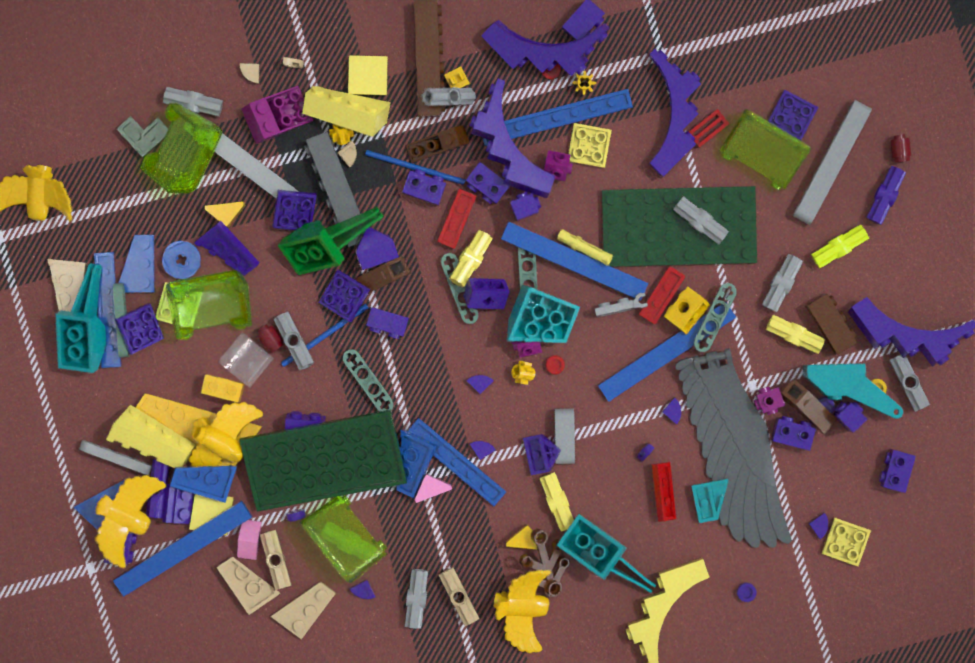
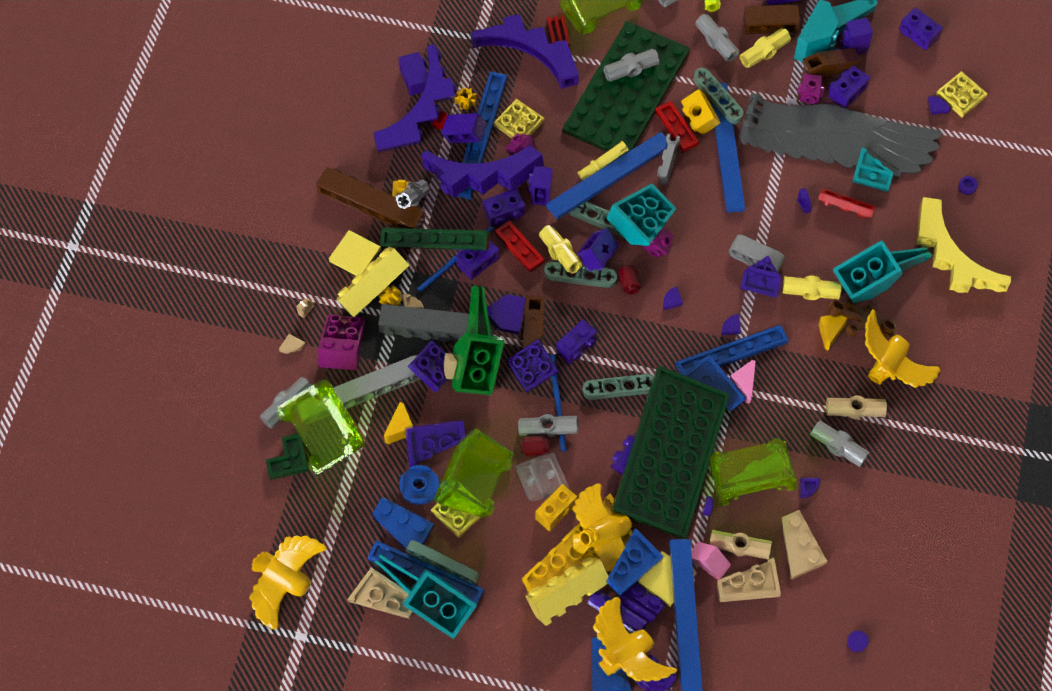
camera: 60 degrees left, 25 degrees down
(115, 457) = (565, 637): light grey beam -> none
(139, 328) = (460, 549): dark purple tile -> none
(299, 226) = (450, 366): none -> tan tile
(416, 142) = (435, 239): none -> dark green plate
(437, 143) = (449, 220): reddish brown slope -> none
(476, 336) = (629, 279): none -> dark red brick
(523, 372) = (687, 256): yellow gear -> none
(546, 101) = (464, 128): none -> dark purple brick
(555, 364) = (689, 234): red tile -> none
(673, 410) = (780, 165): dark purple tile -> none

